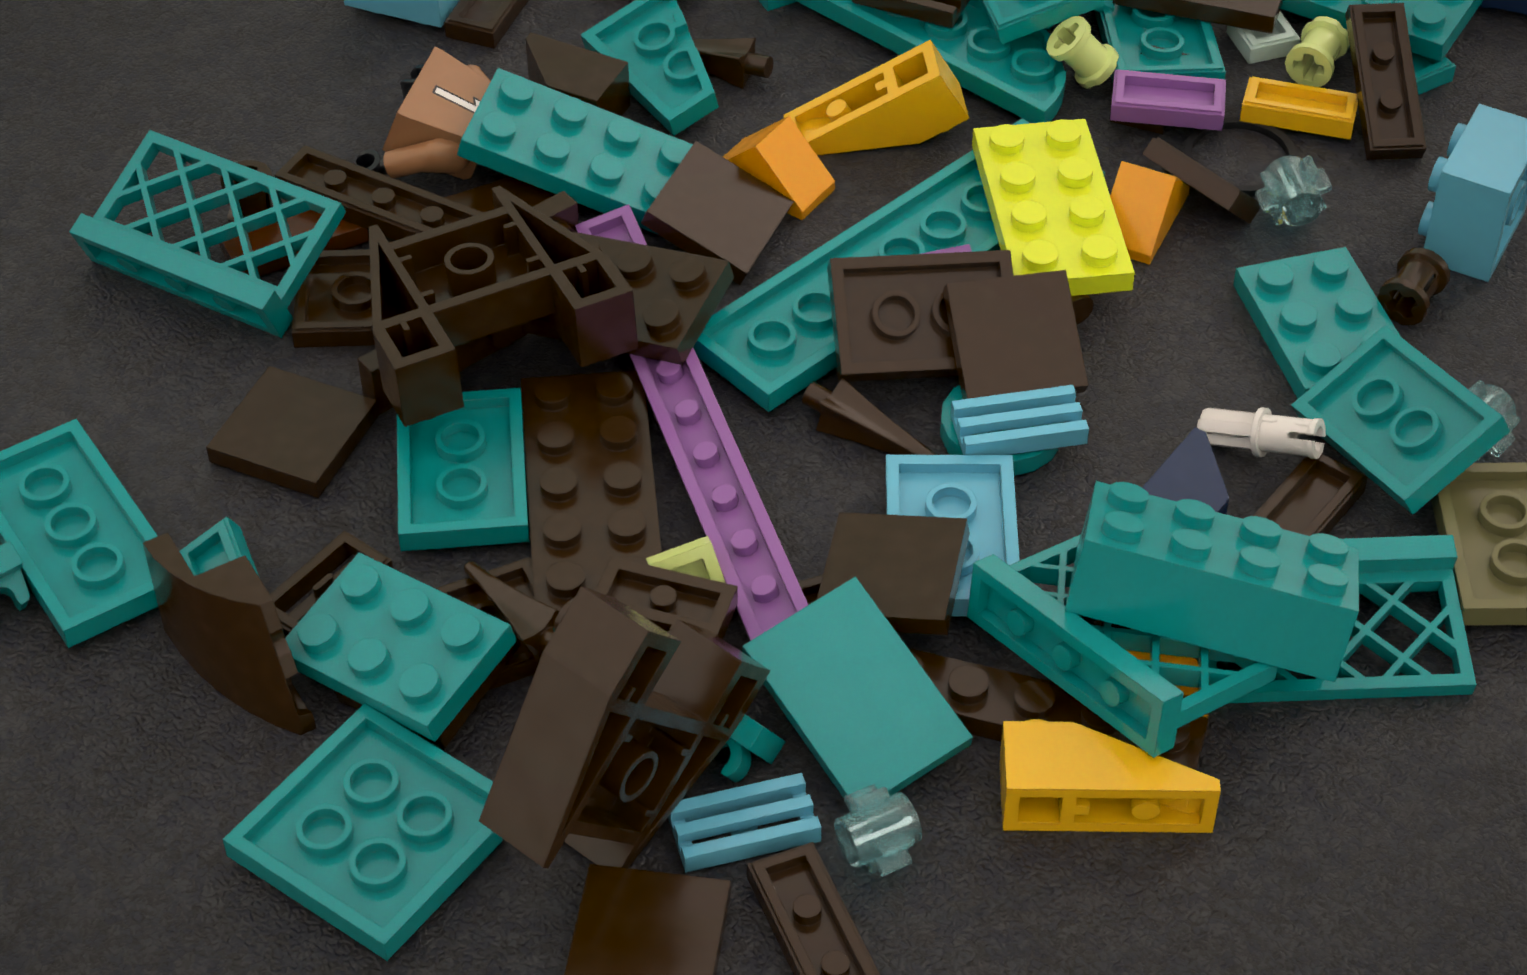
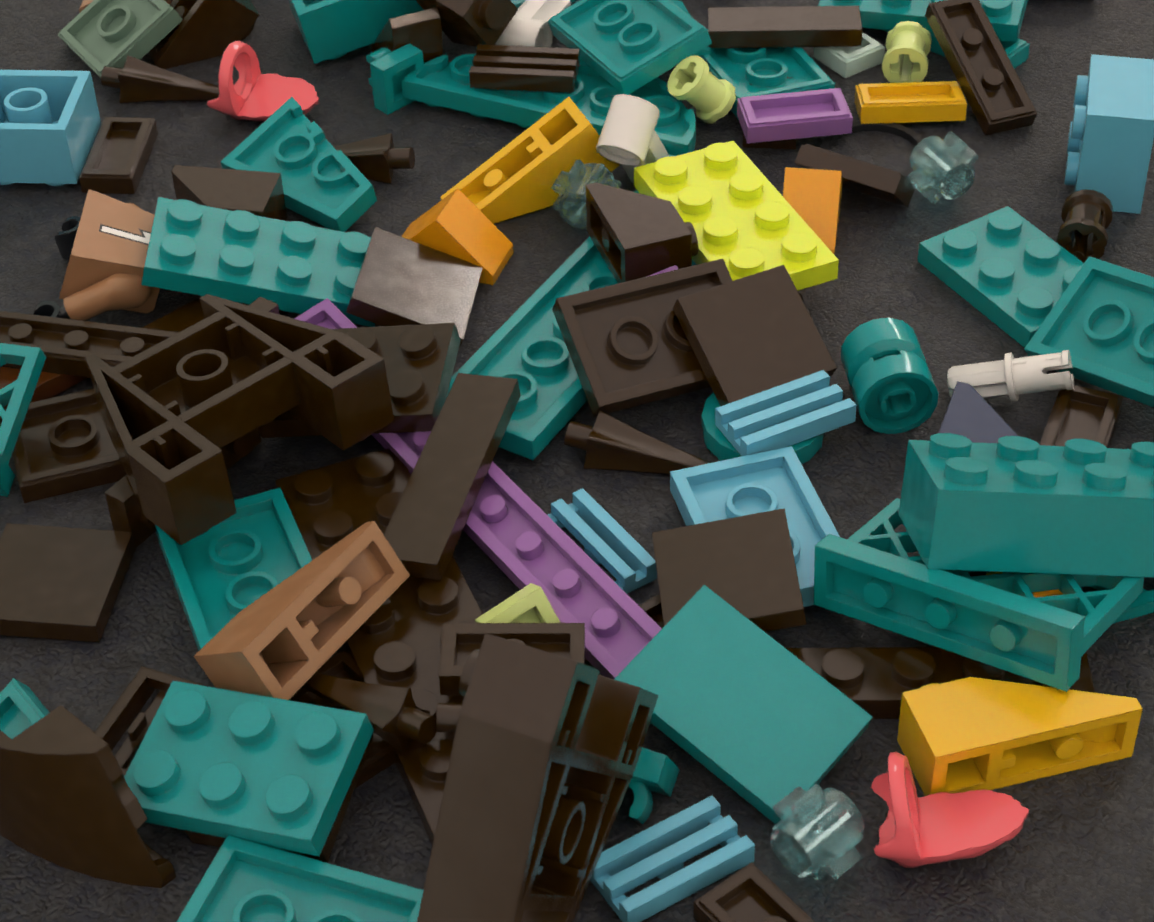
camera: 15 degrees left, 5 degrees down
(492, 521) = (305, 618): none -> medium nougat slope
(672, 412) = (451, 472): none -> dark brown tile
(778, 477) = (605, 540): none -> medium azure tile
(921, 145) = (572, 190): none -> clear light blue gear
(947, 203) = (637, 232): none -> dark brown slope
(981, 93) = (630, 133): none -> white piece
(992, 851) = (943, 823): none -> coral piece
(1137, 404) = (889, 376): none -> teal wheel

